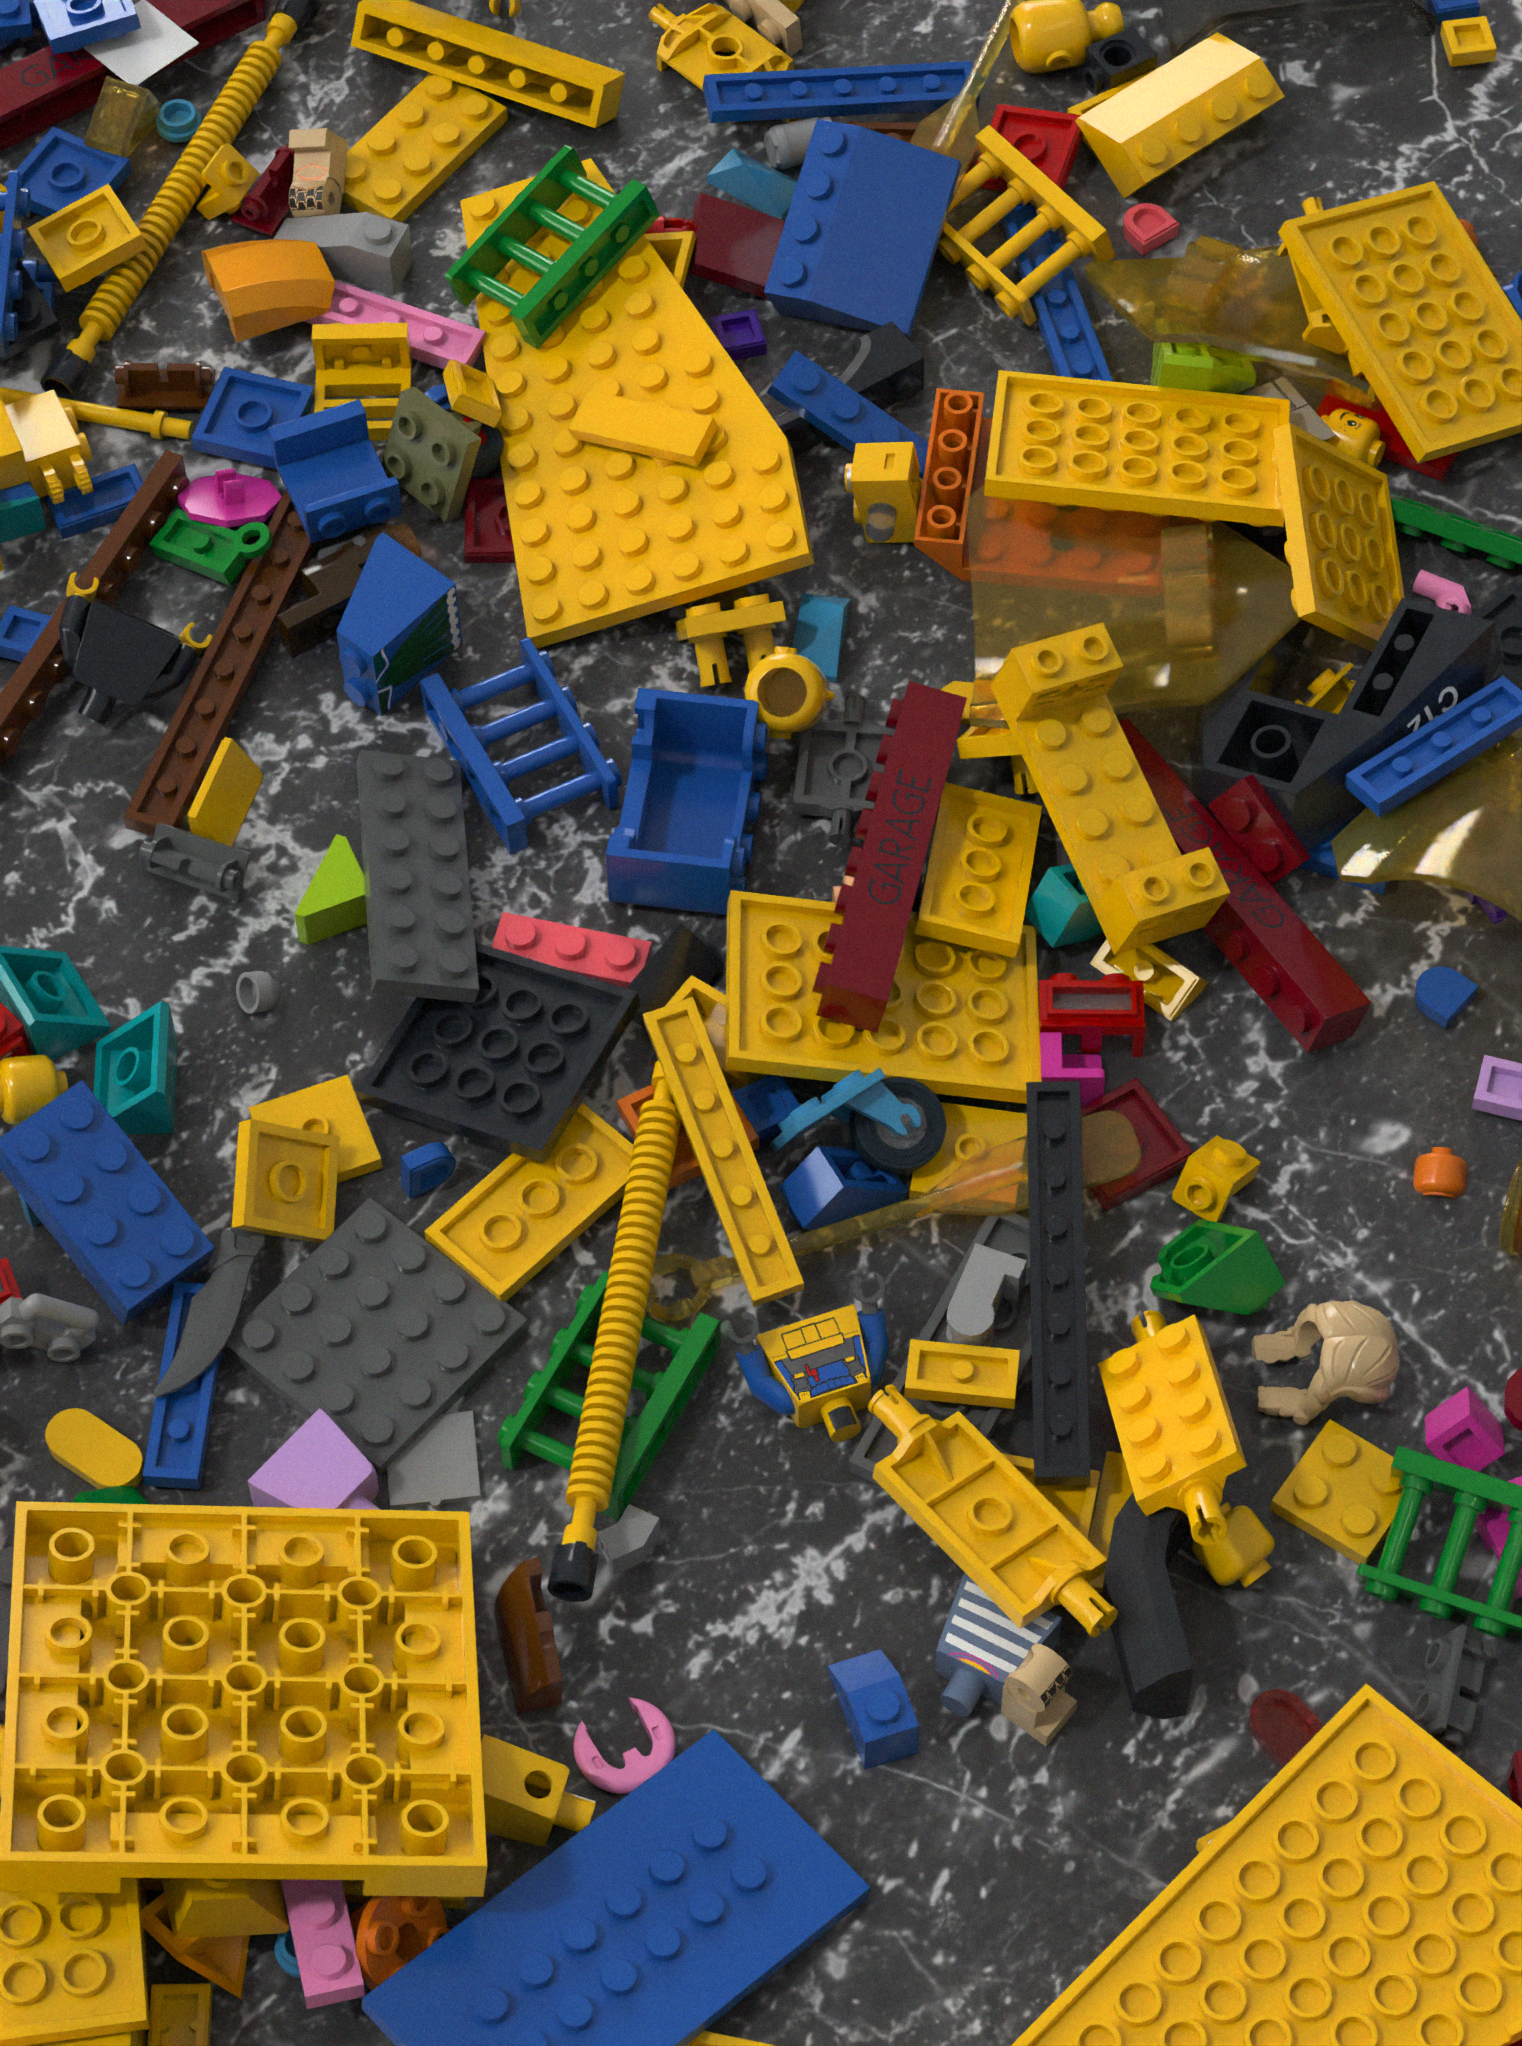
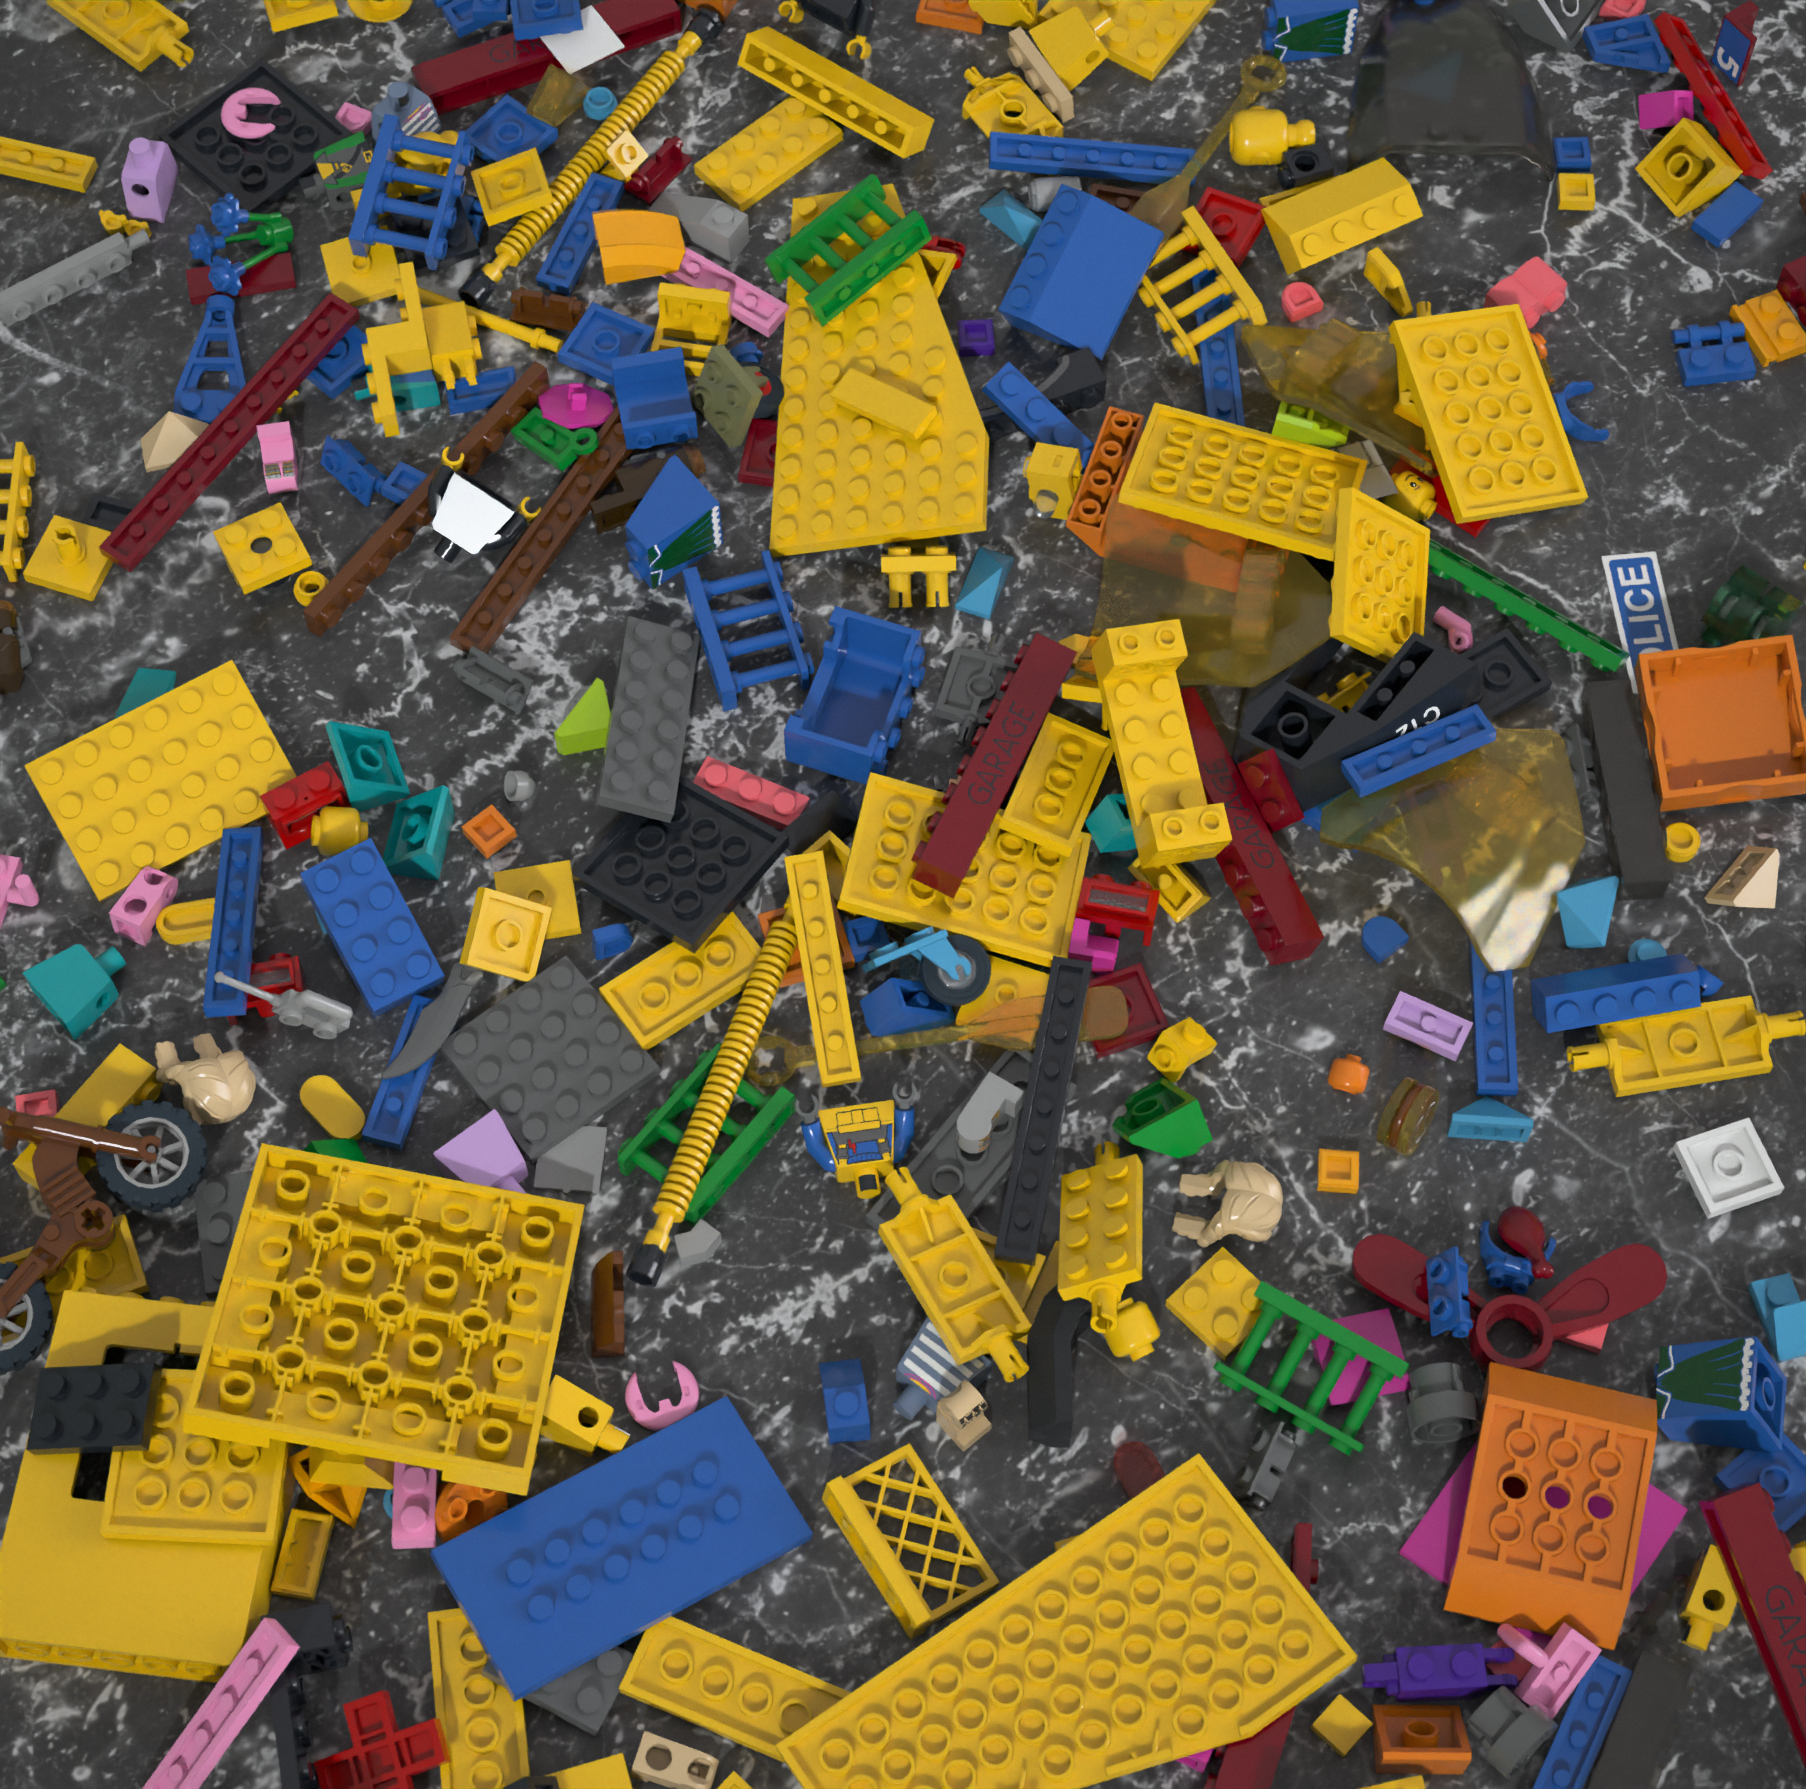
camera: 10 degrees right, 5 degrees up
(185, 289) = (577, 235): none -> blue plate
(225, 794) = (525, 633): yellow slope -> none
(230, 1056) = (489, 831): none -> orange plate
(317, 172) = (691, 162): tan leg -> none
(472, 393) = (767, 353): yellow tile -> none
(733, 244) = (985, 266): dark red tile -> none
(789, 692) = (946, 626): yellow piece -> none
(959, 1891) = (879, 1558): none -> yellow fence
(962, 1374) = (960, 1166): yellow plate -> none
(1255, 184) = (1387, 281): none -> yellow tile
(1444, 158) = (1531, 286): none -> coral brick
(1456, 1298) = (1338, 1171): none -> light orange tile
(1464, 1432) = (1318, 1276): dark pink panel -> none

